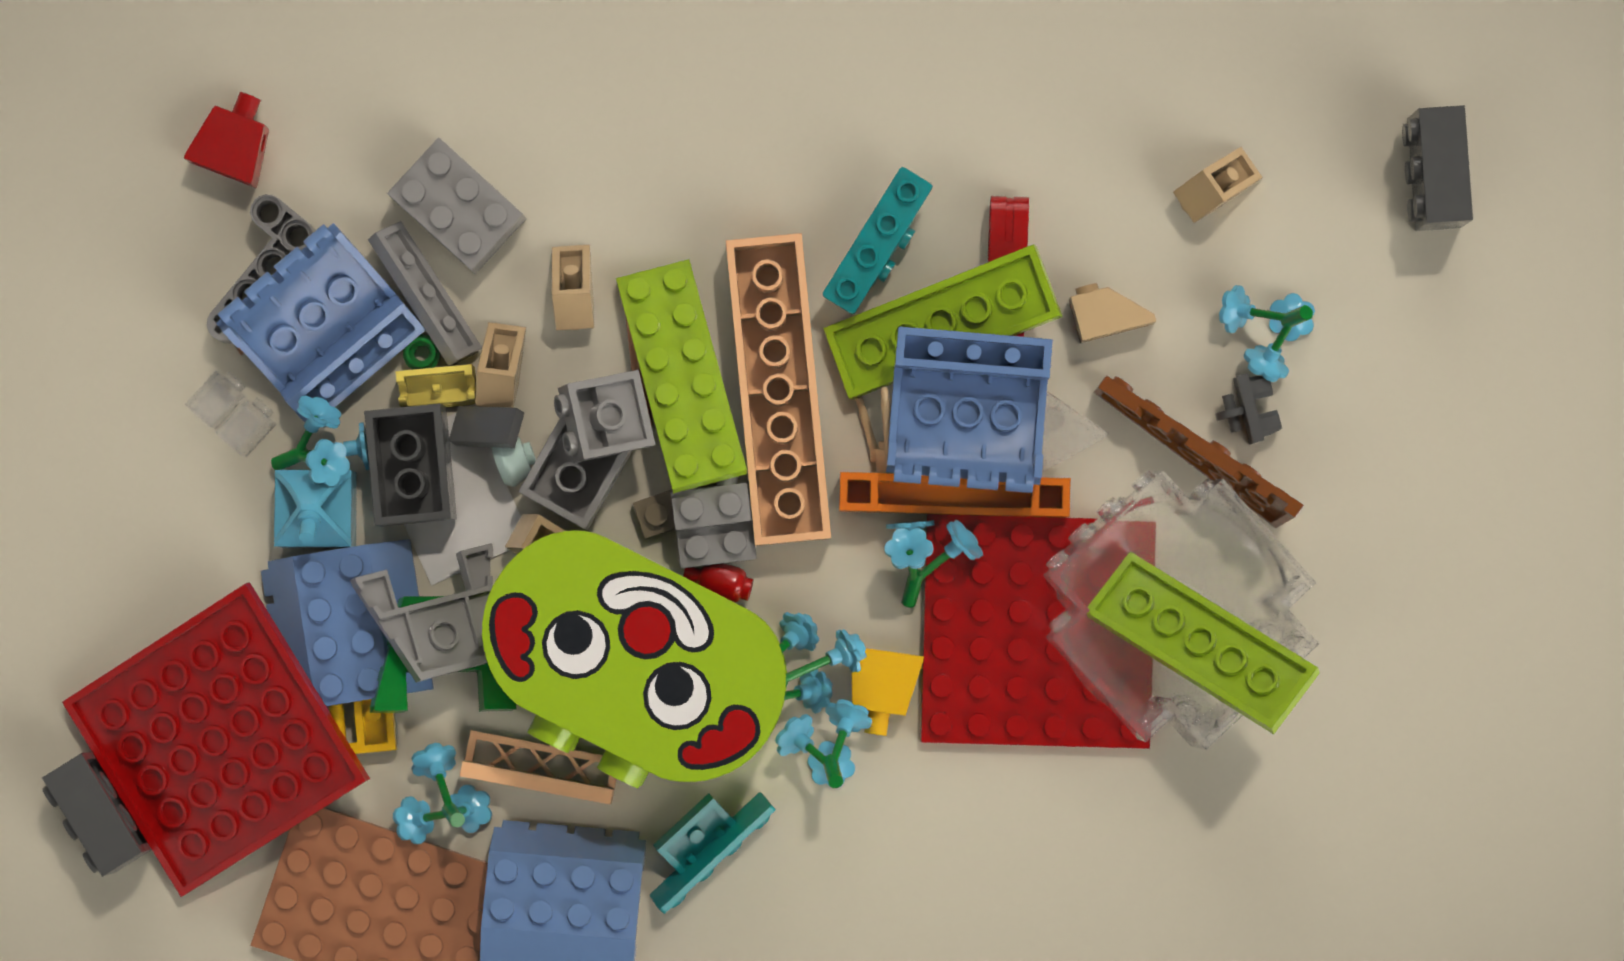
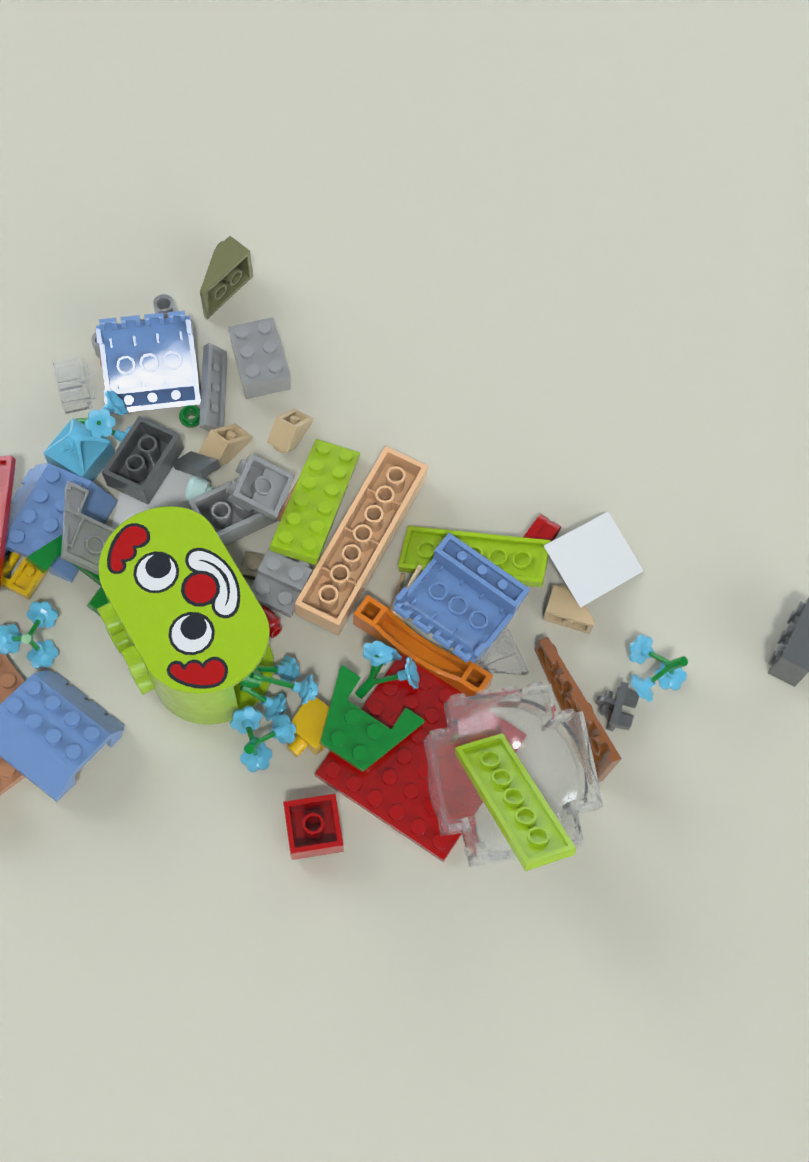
camera: 25 degrees right, 20 degrees down
(231, 142) = (170, 268): red torso -> none
(321, 99) = (226, 274): none -> olive slope
(443, 385) = (191, 432): light yellow hinge -> none
(535, 781) = (89, 659): light nougat fence -> none
(702, 842) = (154, 748): teal bracket -> none
(878, 240) = (466, 499): teal bracket -> none
(945, 665) = (356, 734): none -> green wing
(966, 813) = (313, 826): none -> red brick
(1102, 223) = (593, 559): none -> white sticker
(1217, 184) = (668, 580): tan slope -> none

